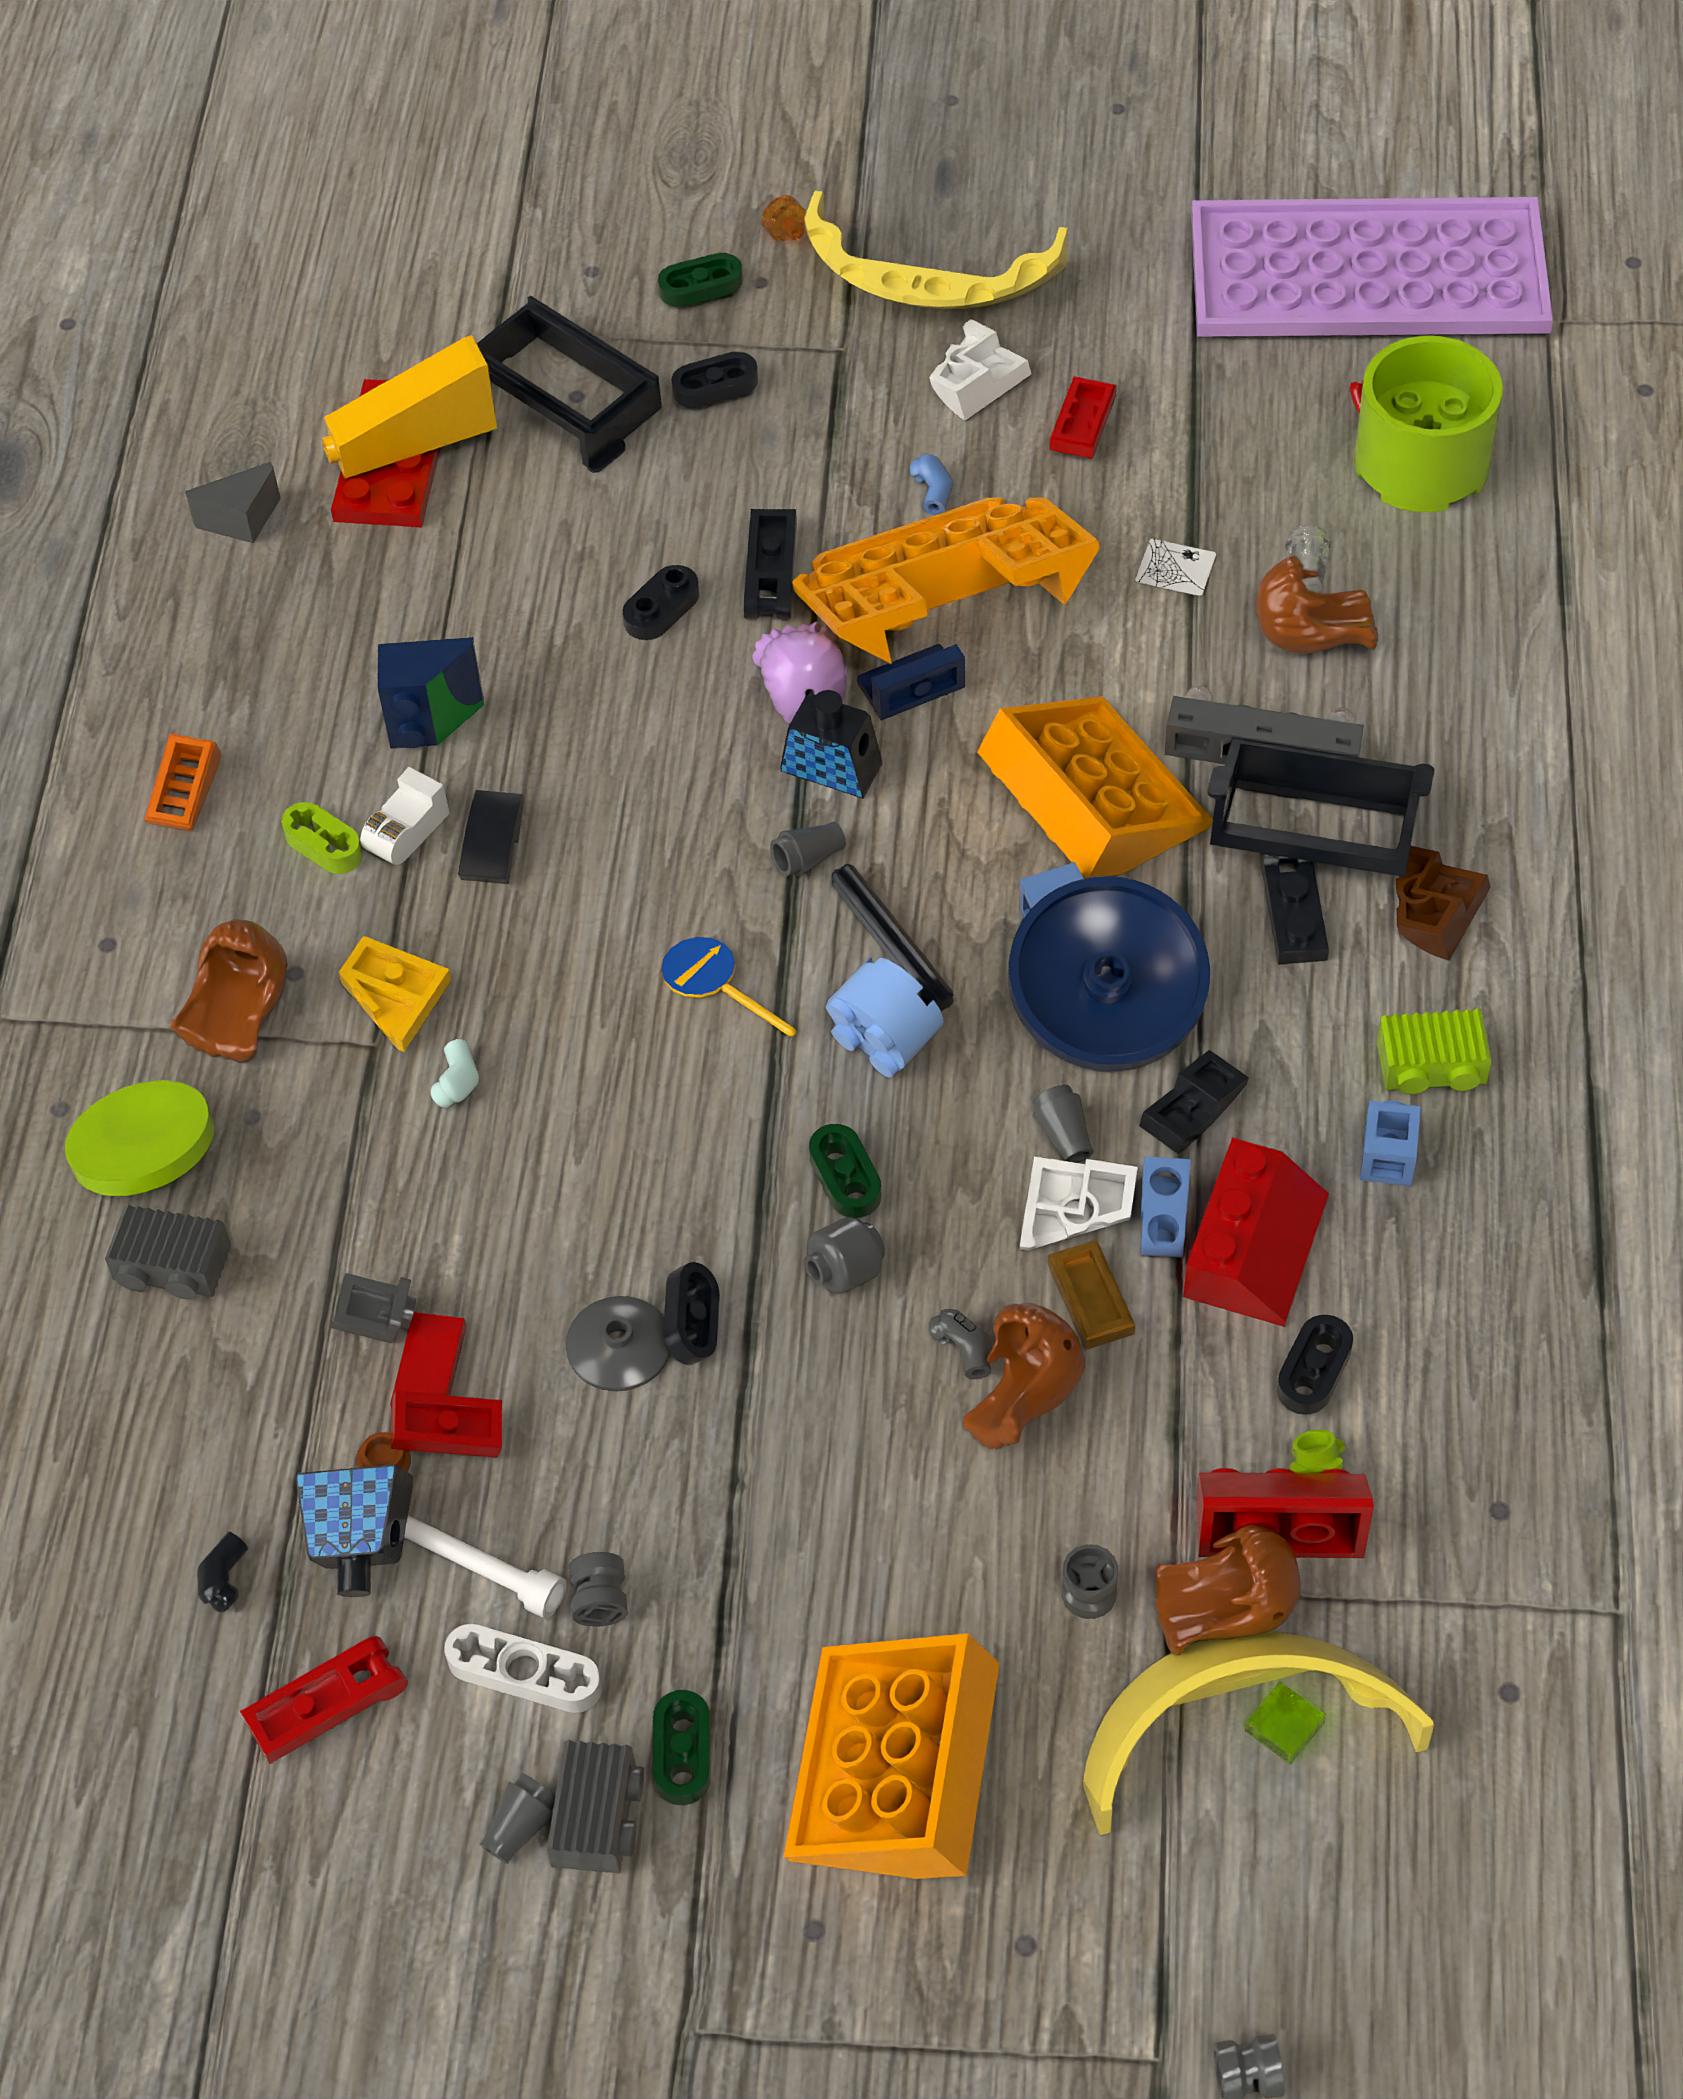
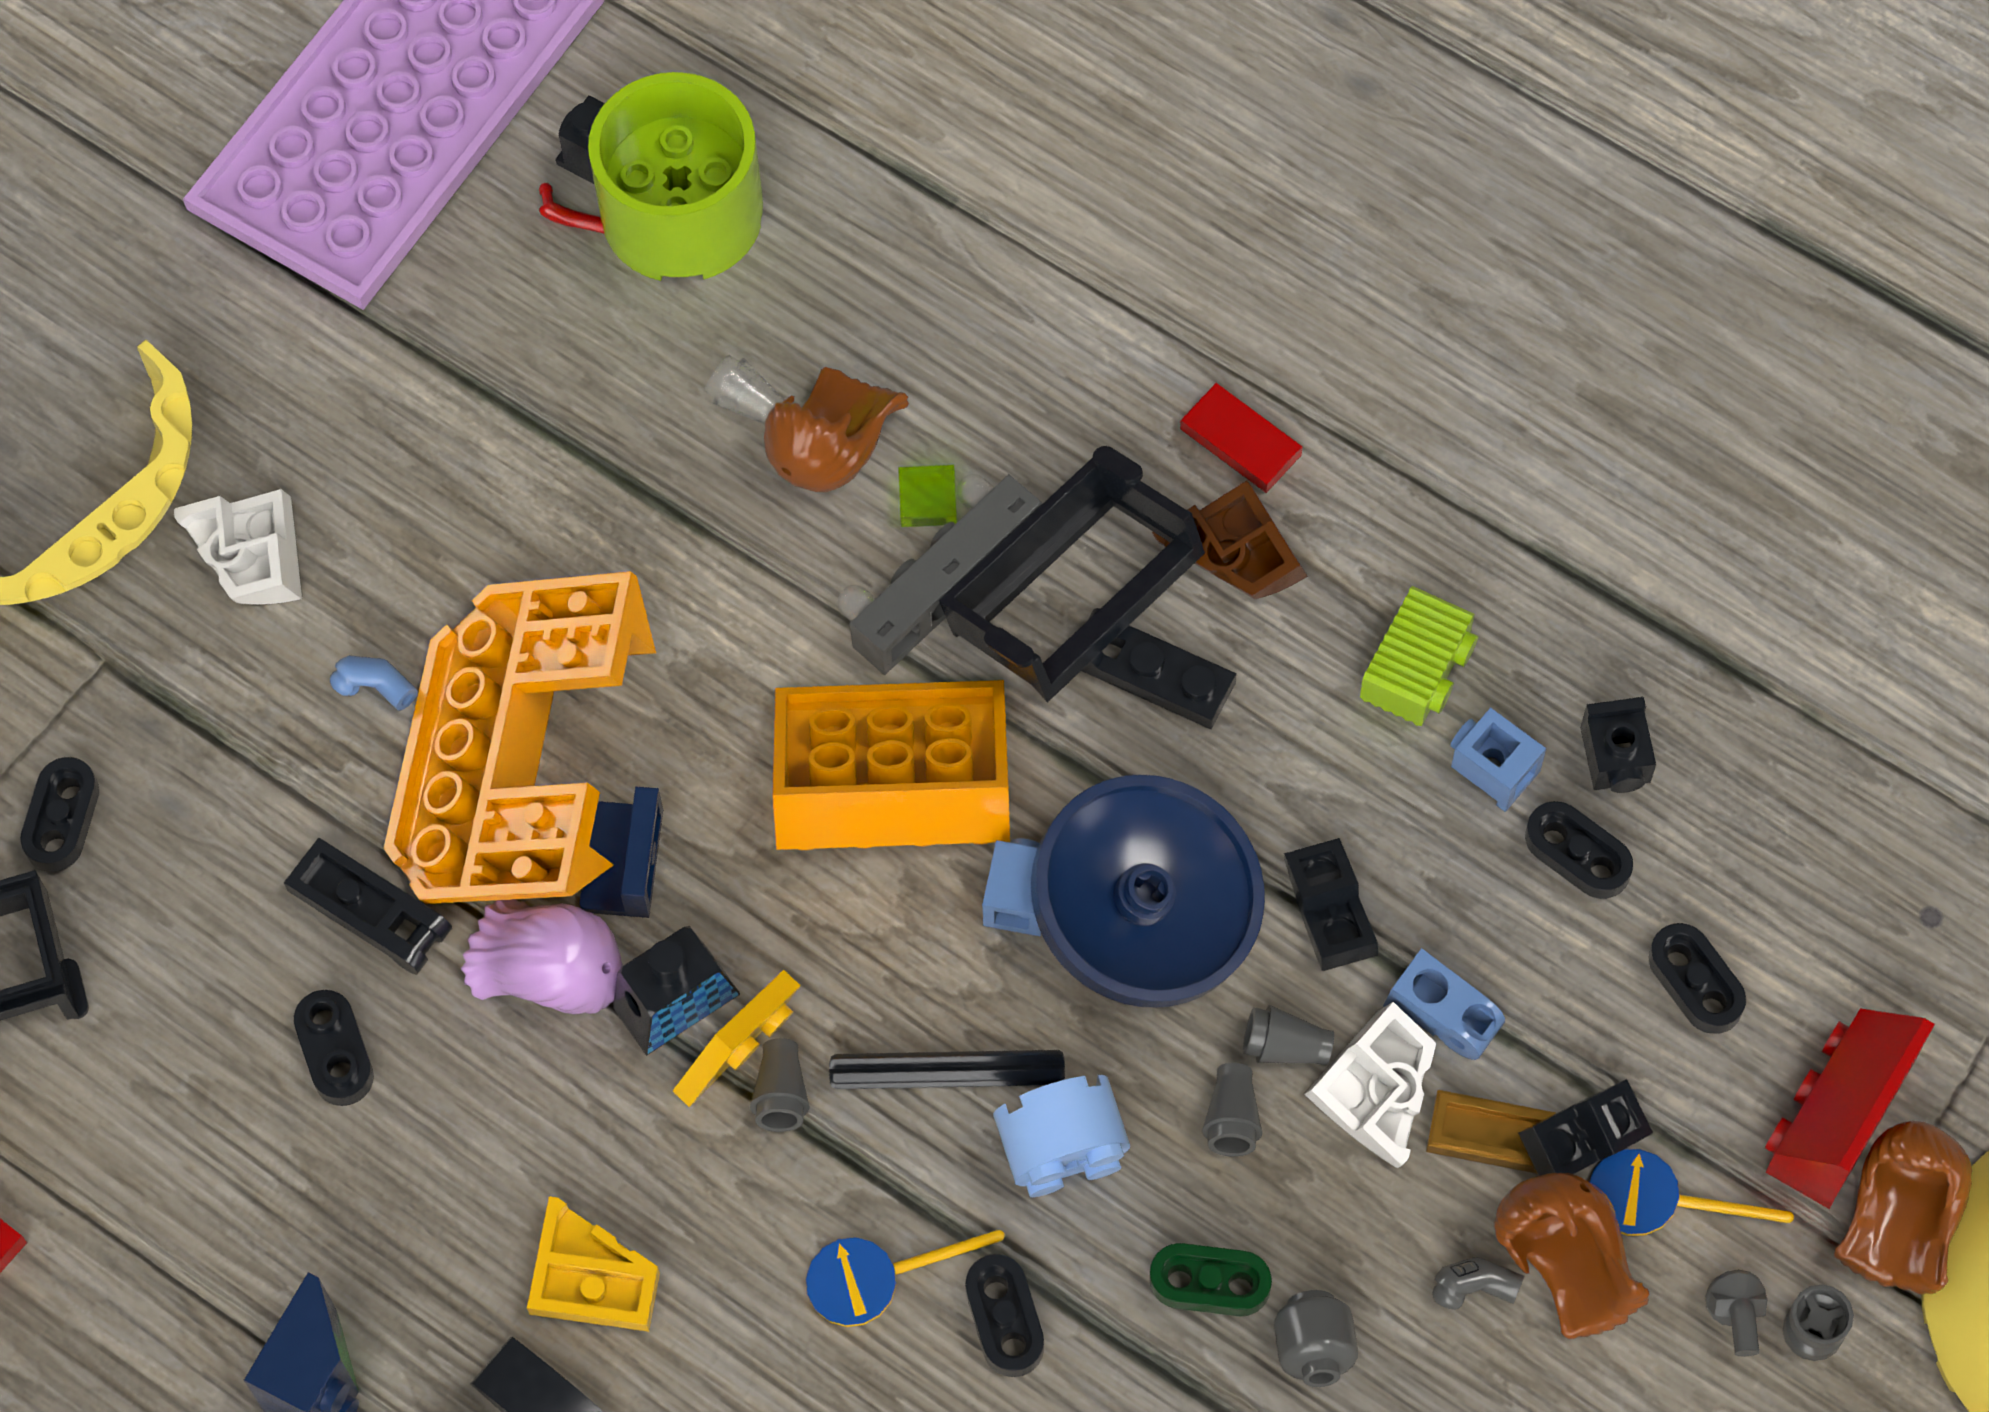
camera: 60 degrees left, 10 degrees up
(598, 814) = (589, 1275): none -> yellow wing
(727, 1063) = (1005, 1317): none -> black plate
(822, 798) = (736, 1040): none -> yellow wing
(980, 1120) = (1233, 1114): none -> dark grey cone
(1069, 1519) = (1736, 1301): none -> dark grey plate
(1083, 417) = (396, 483): red plate -> none
(1116, 1417) = (1647, 1194): none -> blue piece
(1133, 1351) = (1587, 1131): none -> black slope
(1175, 567) = (652, 518): white sticker -> none
(1255, 1234) = (1521, 945): red slope -> none
(1316, 1452) = (1785, 1028): lime plate -> none
(1317, 698) = (927, 495): none -> clear neon green tile
(1360, 1238) = (1582, 848): none -> black plate
(1467, 1216) = (1613, 724): none -> black brick
(1523, 860) = (1241, 437): none -> red tile

